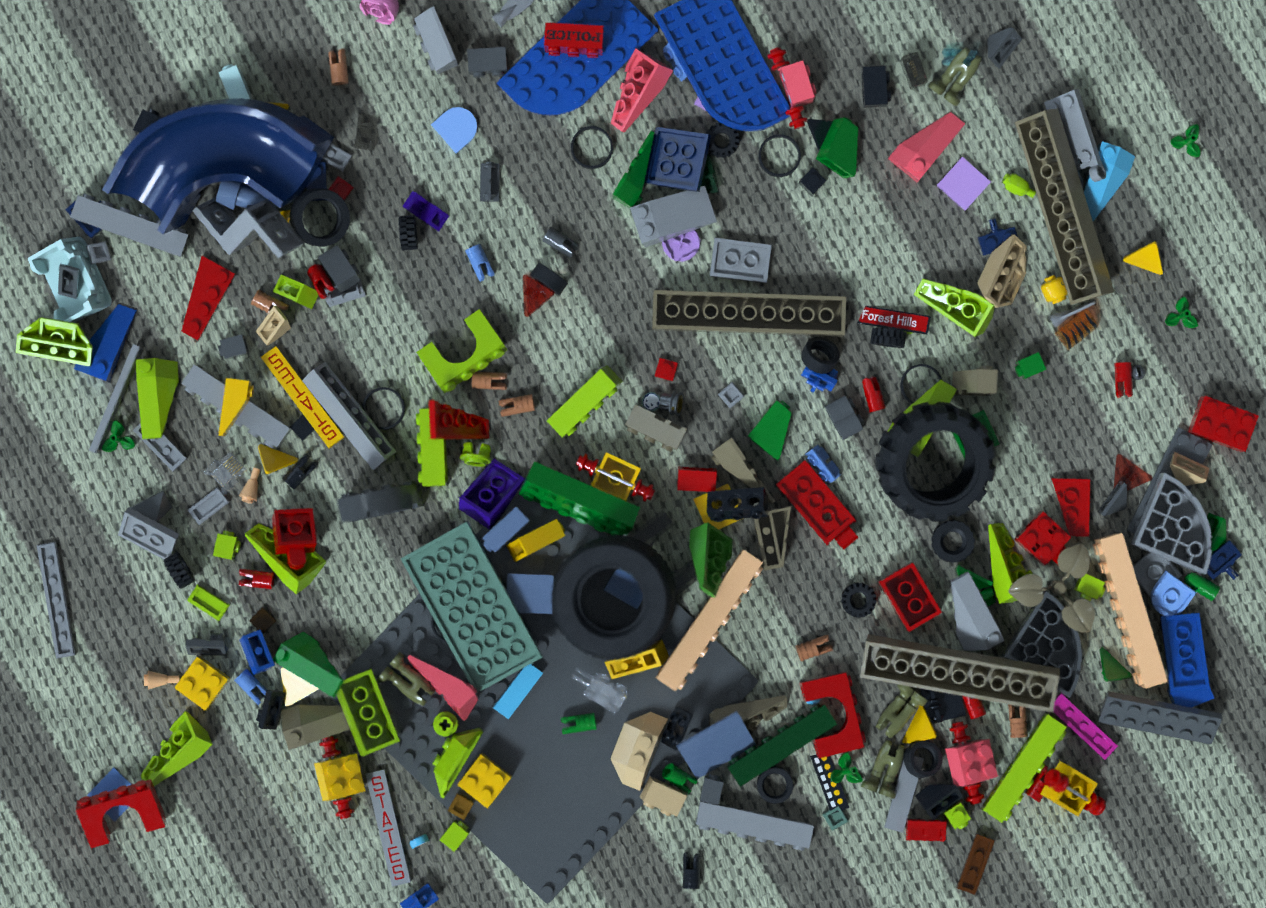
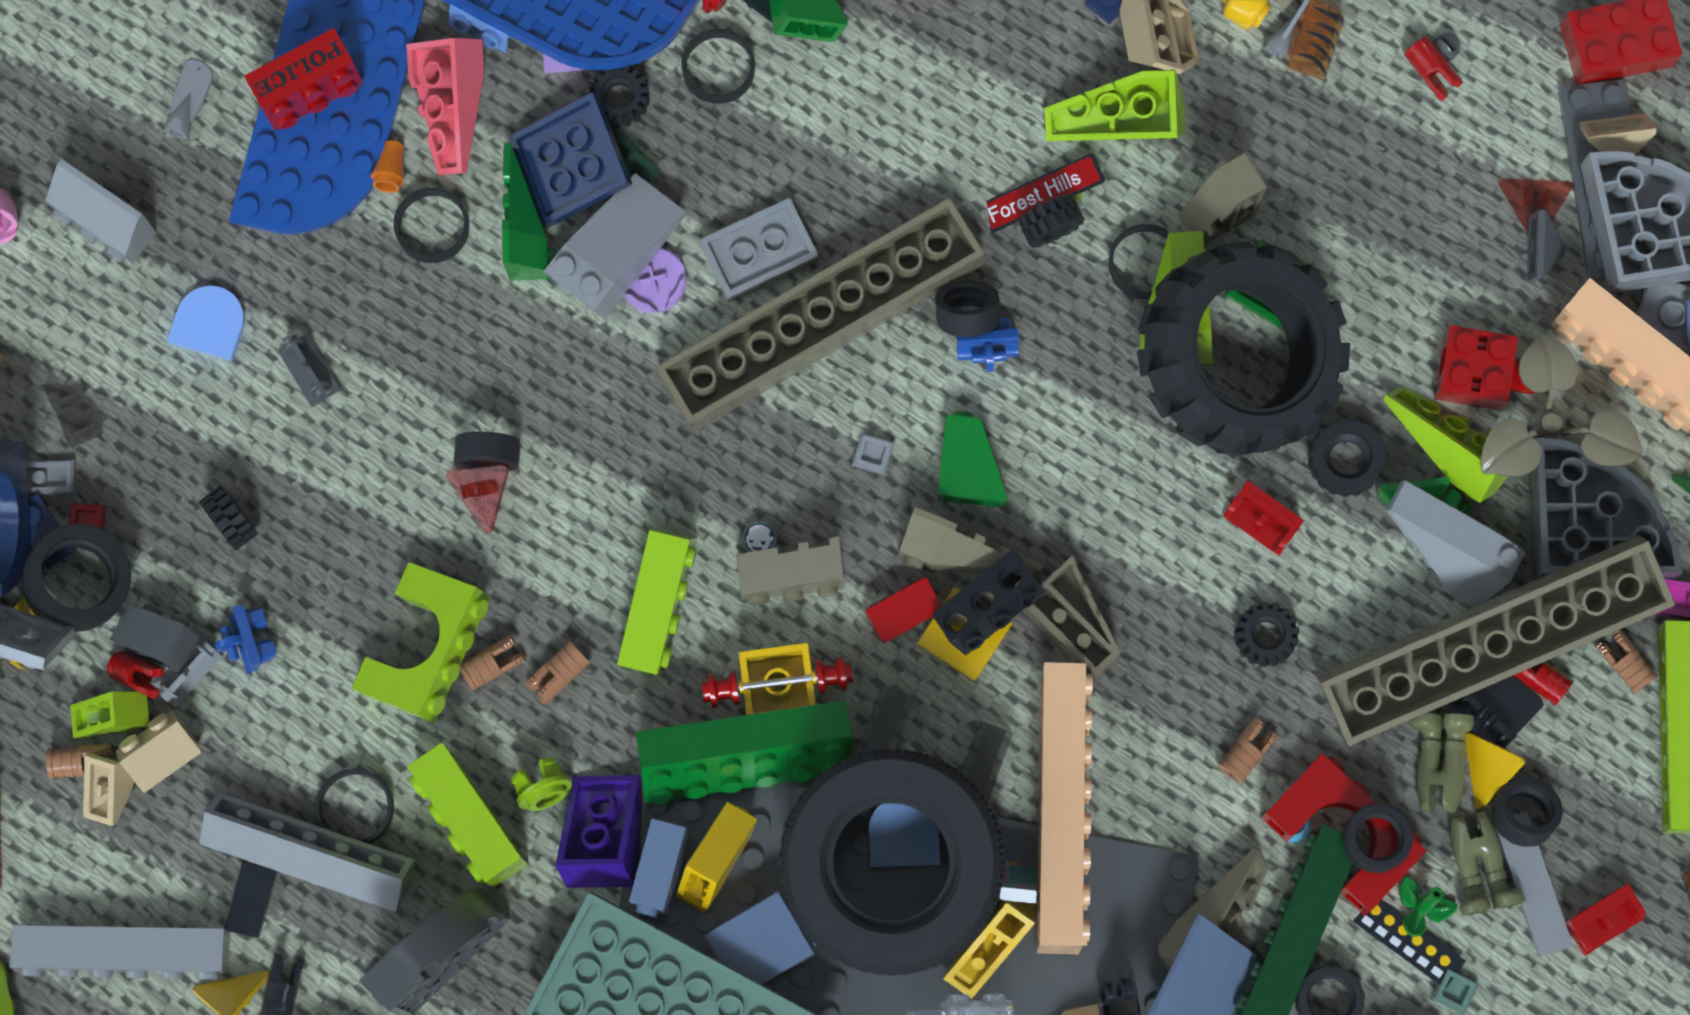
camera: 30 degrees left, 10 degrees down
(233, 347) = (61, 861): dark grey brick -> none
(234, 401) = (109, 937): yellow slope -> none
(302, 397) = (216, 870): yellow tile -> none
(308, 324) = (157, 751): none -> tan brick
(384, 287) = (243, 624): none -> blue hips
(425, 211) = (238, 472): dark purple slope -> none
(455, 423) = (478, 755): red wing -> none
(478, 257) = (360, 492): medium blue hinge -> none
(487, 61) = (196, 197): dark grey brick -> none
(560, 242) = (471, 390): dark grey hinge -> none
(589, 105) = (389, 169): none -> orange cone
(666, 369) = (750, 477): red plate -> none
(667, 641) = (1019, 882): none -> tile
(672, 402) = (792, 519): dark grey piece -> none
(710, 554) = (998, 705): bright green wedge -> none
(812, 182) = (790, 71): black brick -> none
(814, 499) = (1099, 529): red hinge -> none
(827, 472) = (1063, 464): medium blue hinge -> none
(844, 417) = (1063, 378): dark grey brick -> none
(858, 731) = (1396, 819): none -> black tyre
(873, 394) = (1085, 319): red hinge -> none
(893, 544) = (1263, 518): none -> red hinge
(909, 597) = (1340, 579): red brick -> none
(938, 798) = (1591, 856): black slope -> none
(957, 816) = (1637, 864): lime brick -> none
(970, 762) = (1601, 770): coral brick -> none
(1029, 366) = (1285, 133): green brick -> none
(1074, 504) = (1487, 289): red wing -> none
(1090, 587) = (1594, 394): lime brick -> none

